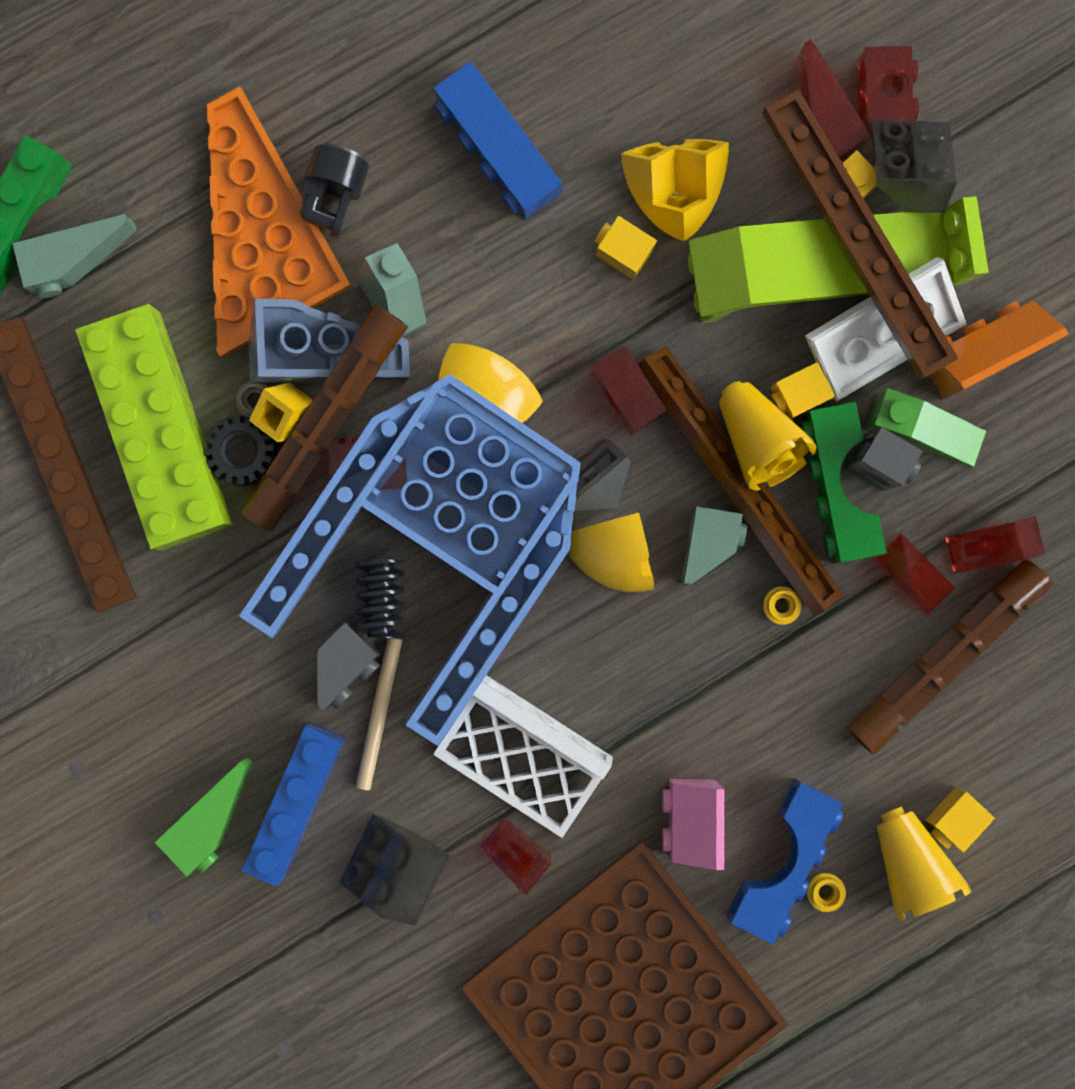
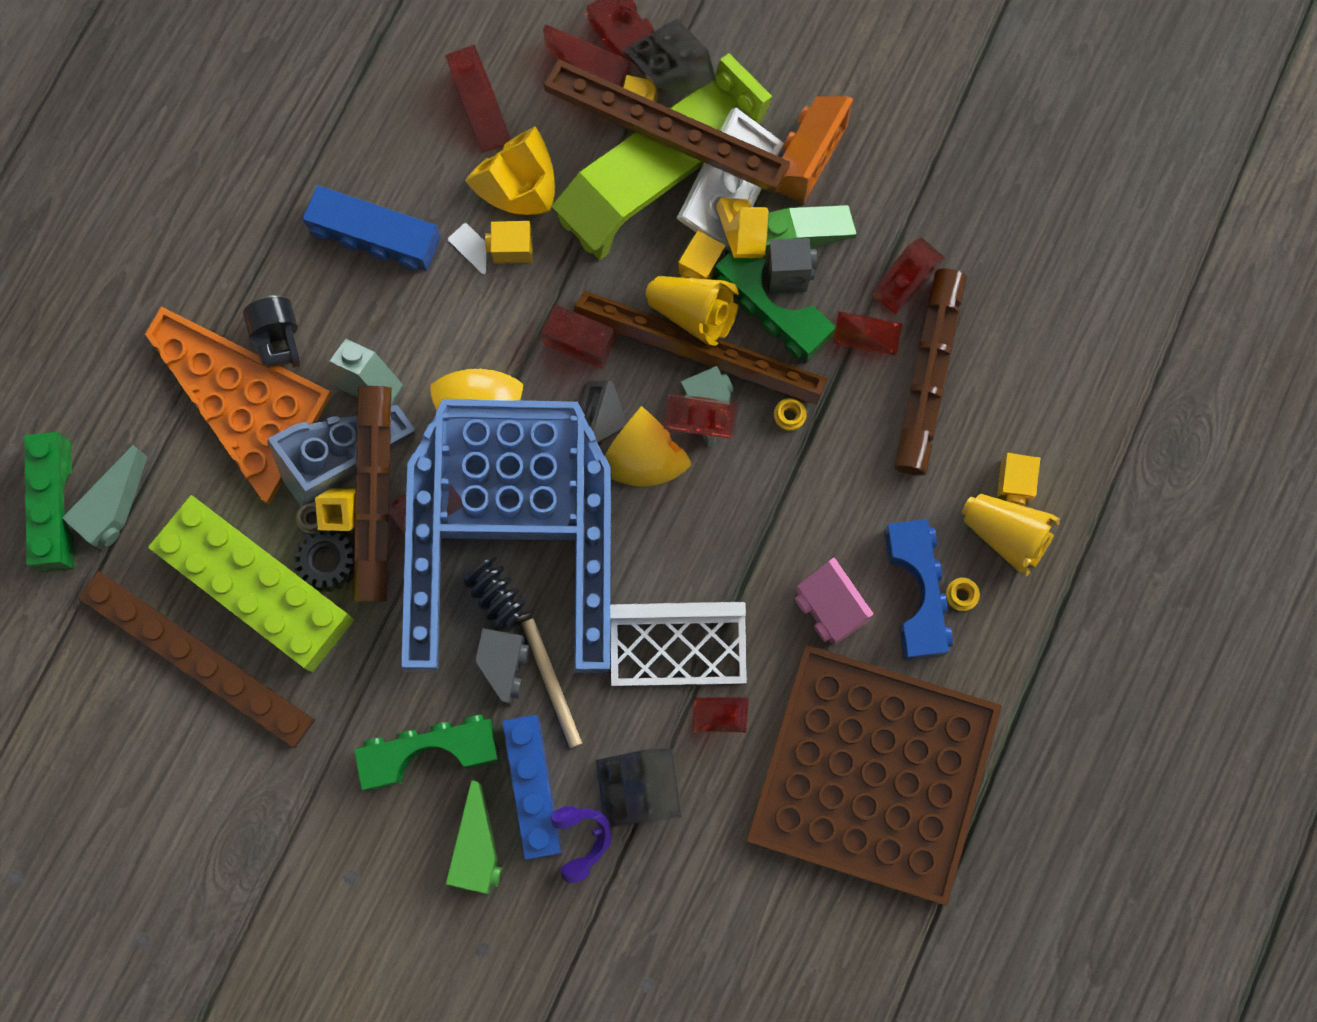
camera: 30 degrees left, 10 degrees down
(263, 721) = (384, 763): none -> green arch
(307, 860) = (569, 816): none -> dark purple piece
(584, 223) = (470, 245): none -> white sticker
(691, 72) = (477, 98): none -> clear red slope
(691, 560) = (701, 415): none -> clear red brick
(865, 391) = (744, 227): none -> yellow slope

